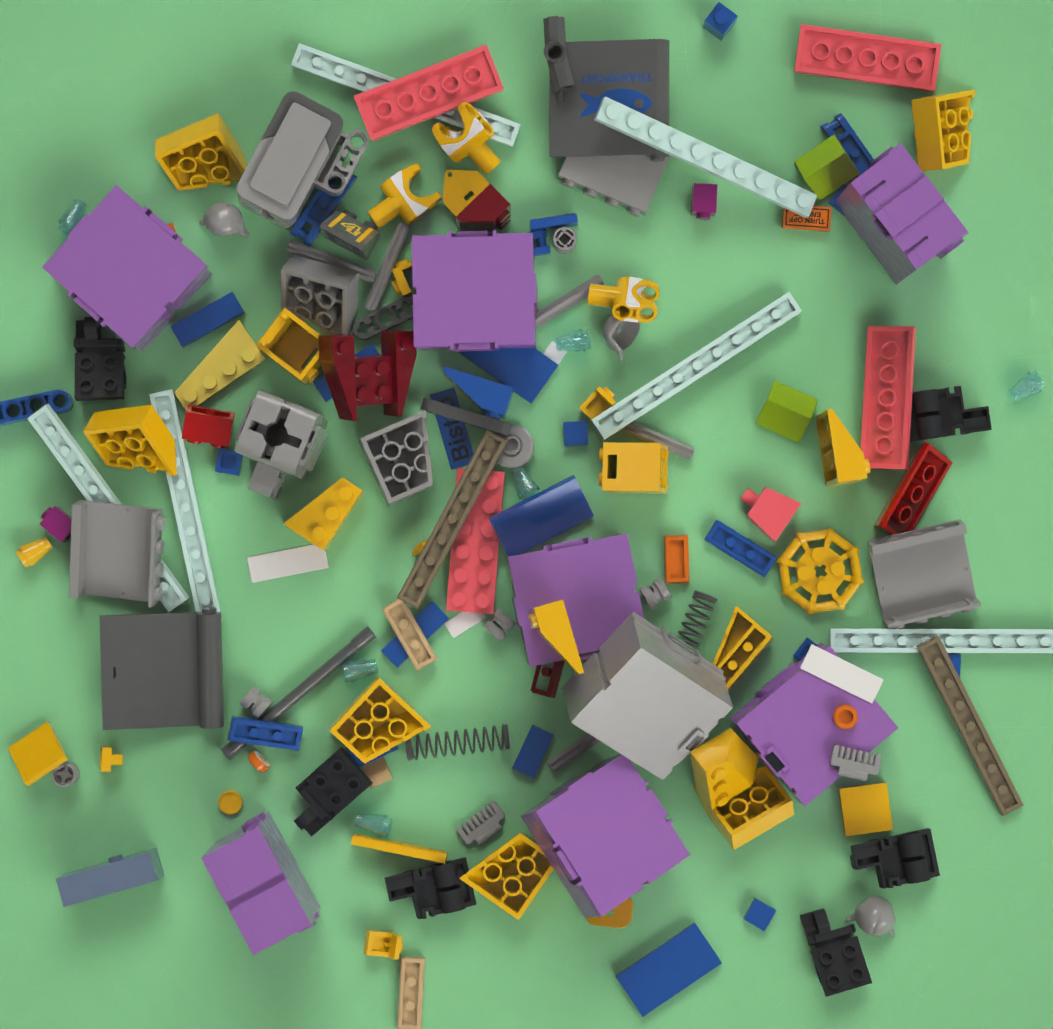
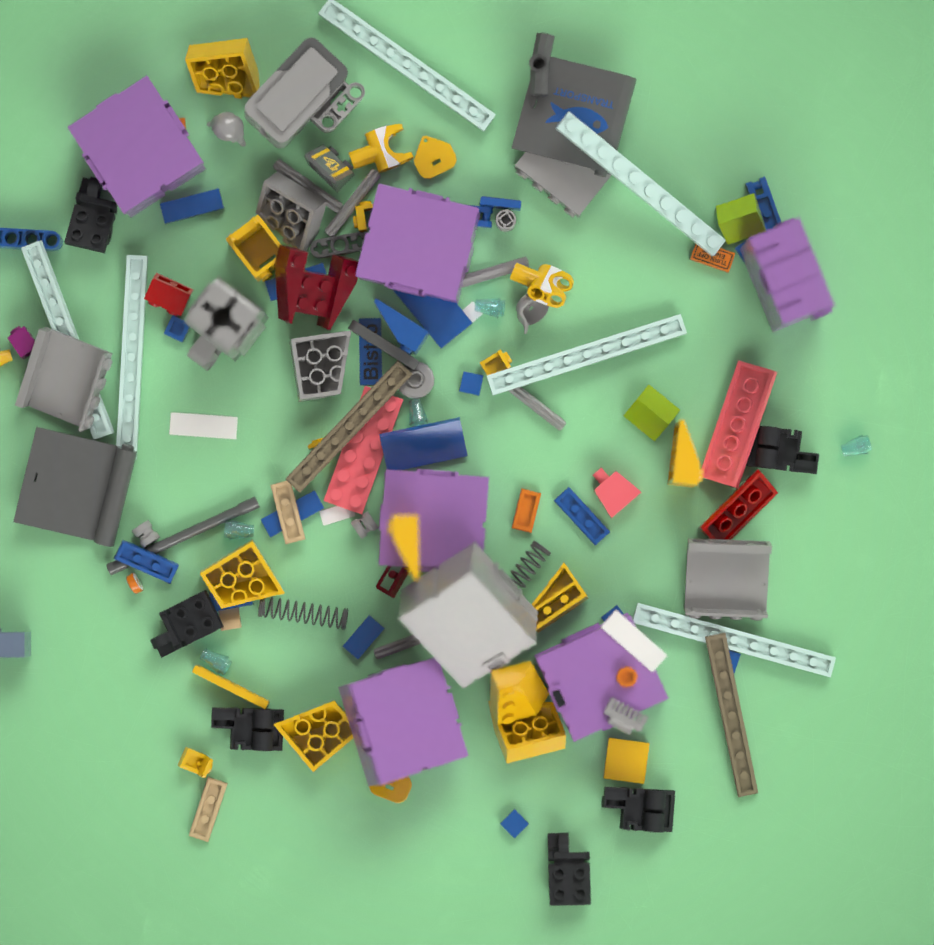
camera: 25 degrees right, 0 degrees up
(72, 216) = (103, 90): clear light blue cone -> none
(107, 759) = (10, 546): yellow tile -> none
(132, 439) = (103, 288): yellow wedge -> none
(225, 364) = (193, 248): light yellow wing -> none
(230, 802) = (101, 610): yellow piece -> none
(261, 883) = (110, 682): medium lavender piece -> none
(318, 211) = (308, 141): blue plate -> none
(326, 514) = (246, 394): yellow wedge -> none
(428, 92) = (426, 68): coral plate -> none
(469, 140) = (449, 116): yellow connector -> none
(485, 212) = (445, 180): dark red slope -> none
(486, 829) = (308, 691): light grey piece -> none
(639, 467) = (511, 425): yellow container -> none
(655, 593) = (500, 534): light grey wheel -> none
(668, 969) = (426, 848): blue tile -> none
(704, 200) = (630, 219): magenta brick -> none
(720, 21) = (684, 73): blue brick -> none
(833, 567) = (643, 540): yellow plate -> none
(867, 58) = (799, 137): coral plate -> none
(874, 916) = (609, 851): light grey hair -> none
(942, 129) = (845, 213): yellow wedge -> none

